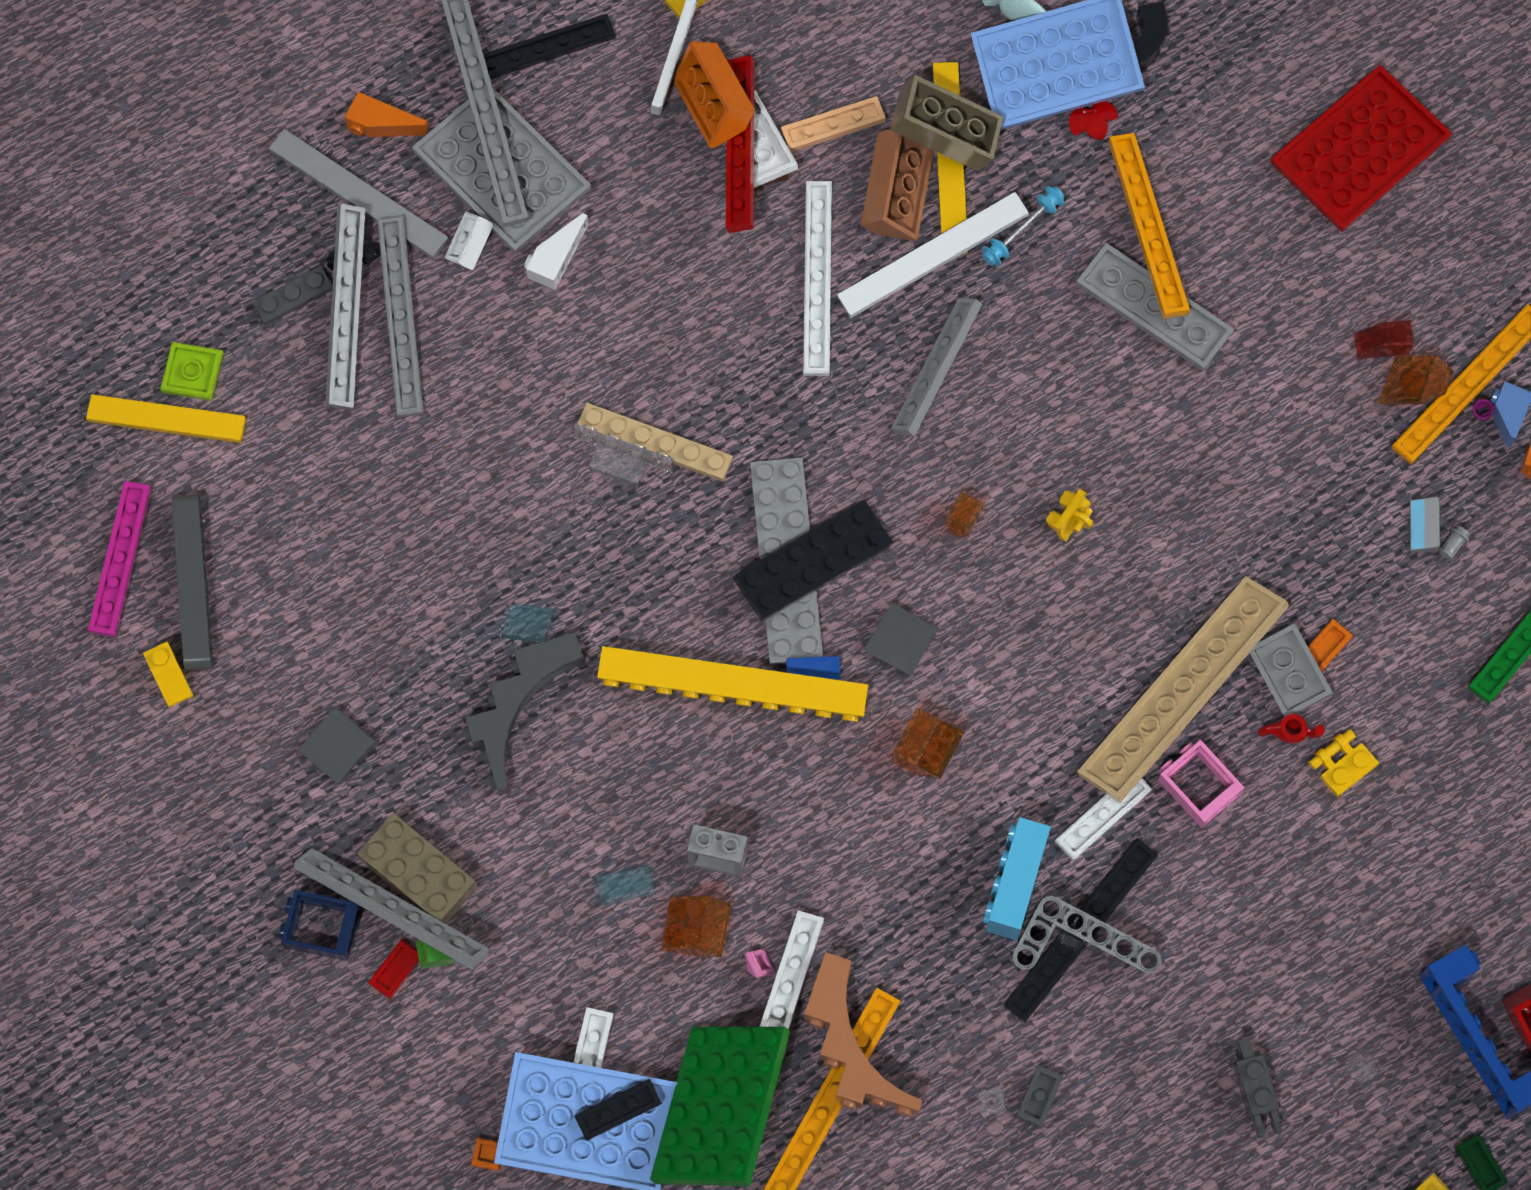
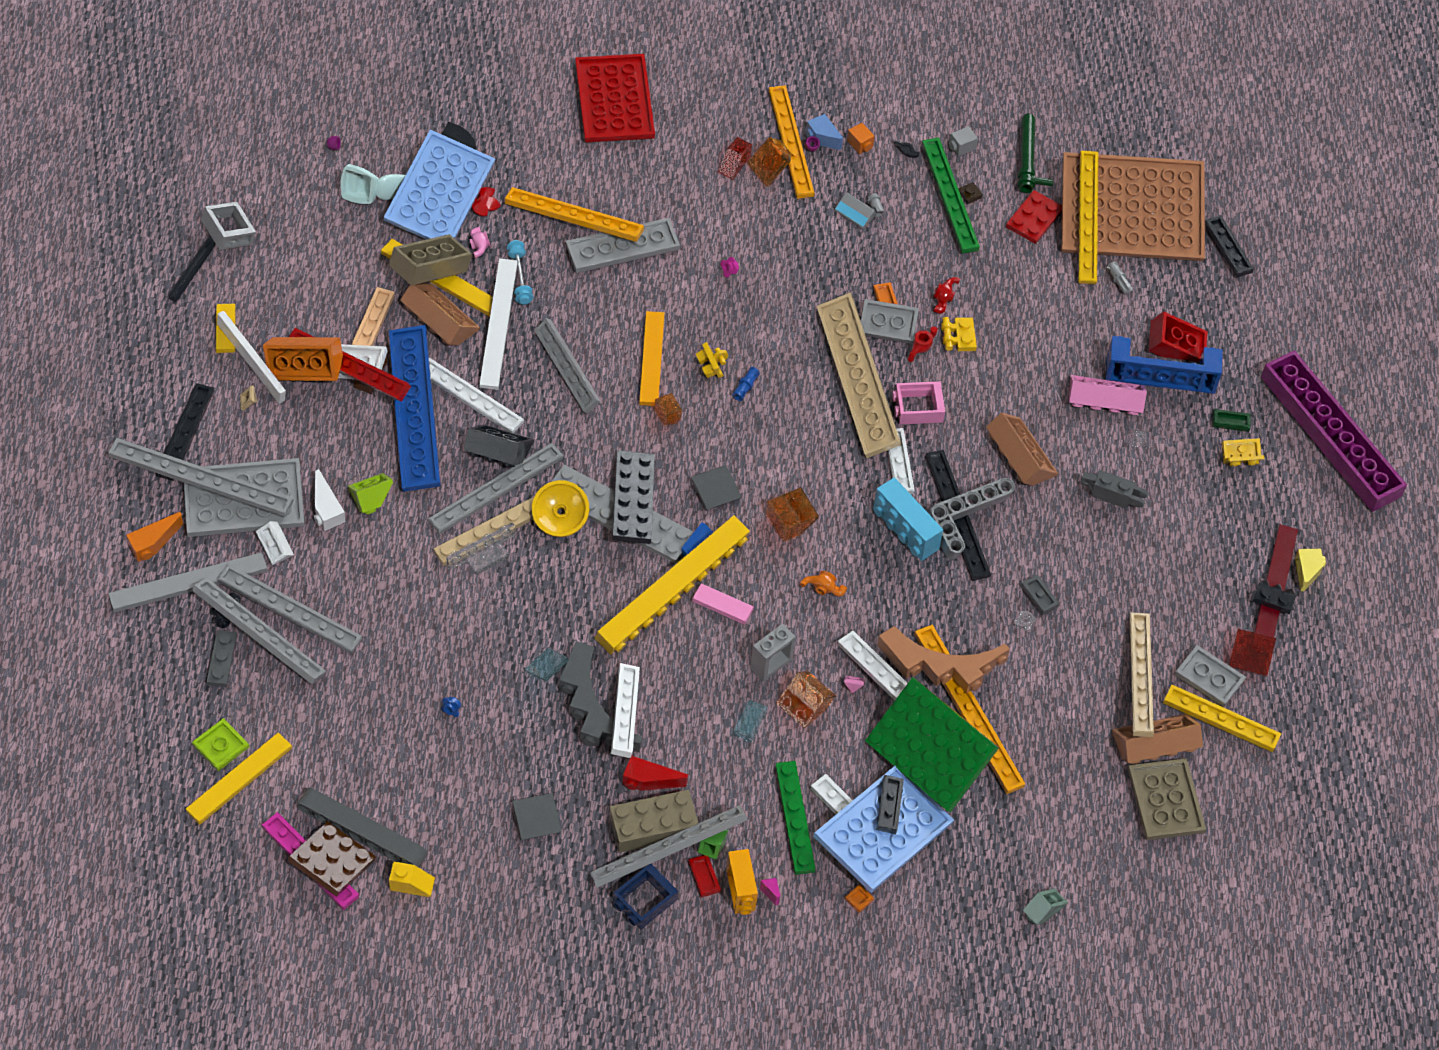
camera: 60 degrees left, 15 degrees down
(133, 578) = (332, 858): none -> plate
(404, 563) = (451, 706): none -> blue plate
(404, 1015) = (741, 881): none -> light orange window
(425, 1054) = (771, 889): none -> dark pink slope
(469, 825) = (651, 776): none -> red slope
(524, 745) = (625, 710): none -> white plate
(538, 1016) = (795, 818): none -> green plate
(604, 286) = (370, 492): none -> lime slope
(629, 78) = (248, 398): none -> tan slope
(717, 409) = (495, 488): none -> light grey tile
(721, 486) = (558, 496): none -> yellow dish
(749, 253) = (416, 412): none -> blue plate
(754, 753) = (723, 604): none -> bright pink tile
(770, 370) = (497, 445): none -> black slope
(863, 844) = (824, 584): none -> orange piece
(1025, 448) = (652, 358): none -> light orange tile
(1029, 154) = (479, 241): none -> bright pink piece
(1071, 573) = (746, 383): none -> blue pin
(1221, 443) = (729, 266): none -> dark pink plate
(1230, 944) = (1021, 449): none -> nougat slope
(1386, 708) = (944, 294): none -> red piece
(1394, 991) = (1107, 394): none -> bright pink slope

